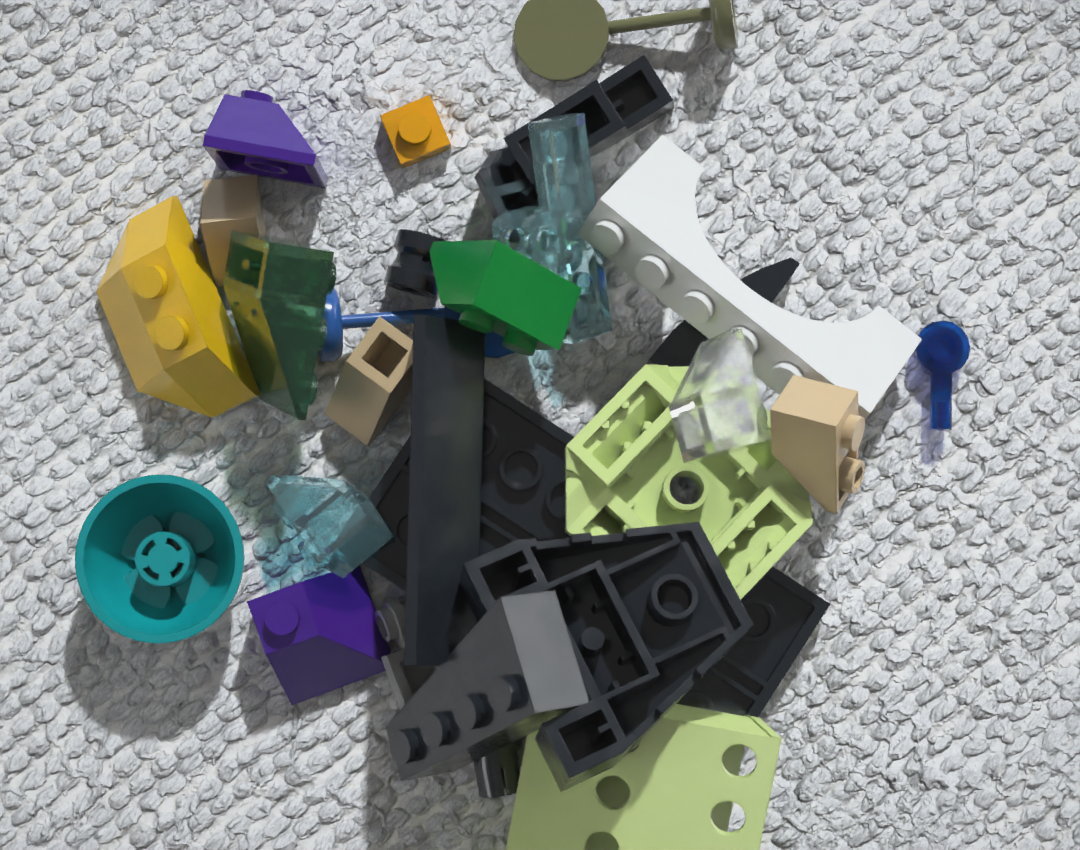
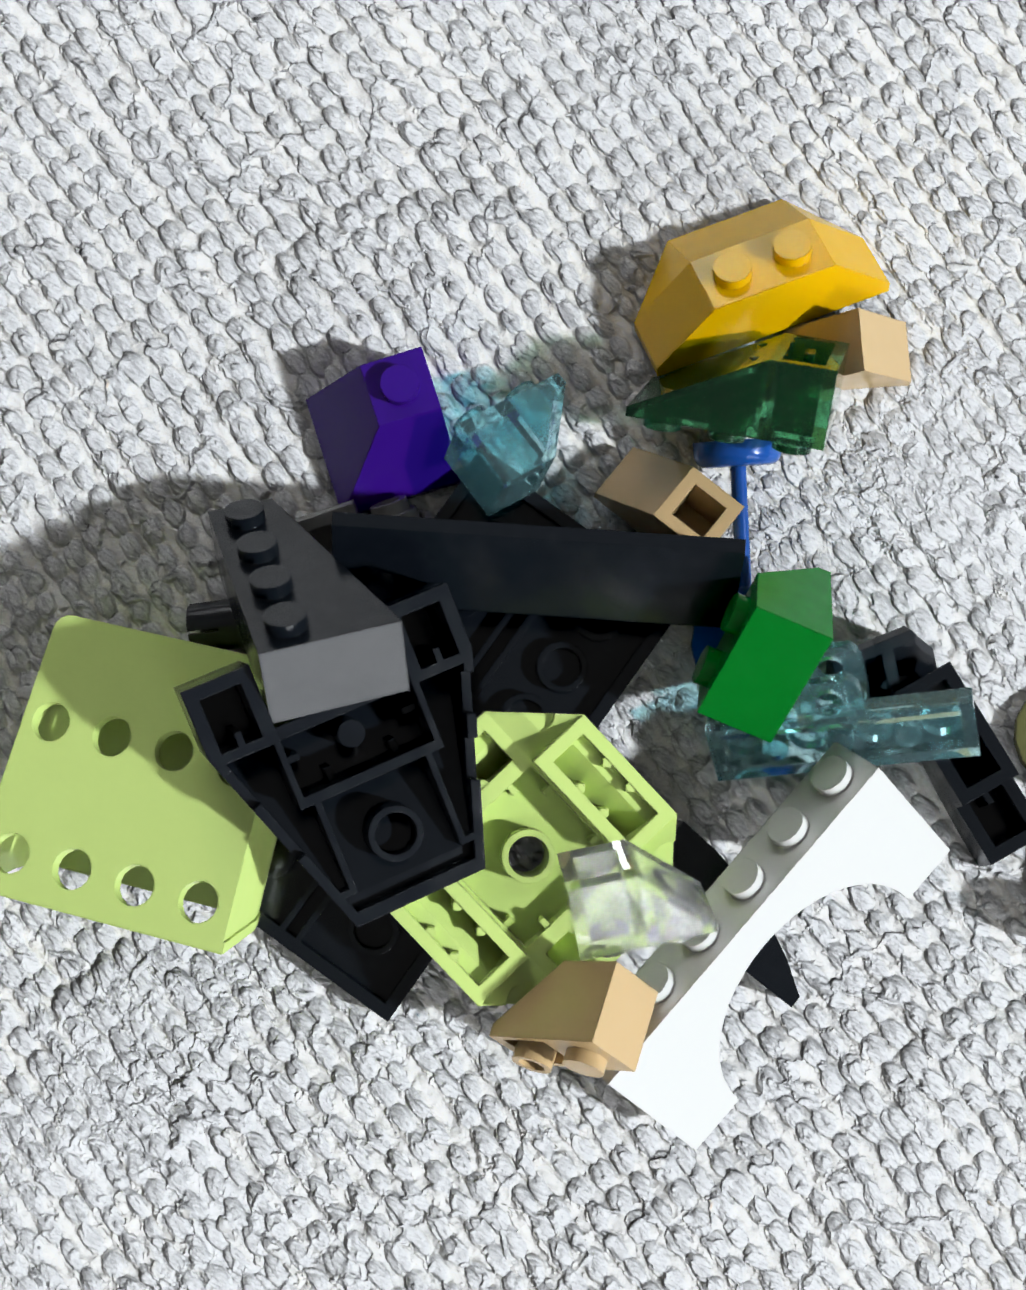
camera: 85 degrees right, 0 degrees up
(129, 565) = (473, 218): teal piece -> none
(259, 138) = (953, 380): dark purple slope -> none
(413, 264) = (797, 549): black wheel -> none
(415, 131) = (957, 563): light orange plate -> none
(941, 353) = (677, 1170): clear blue plate -> none

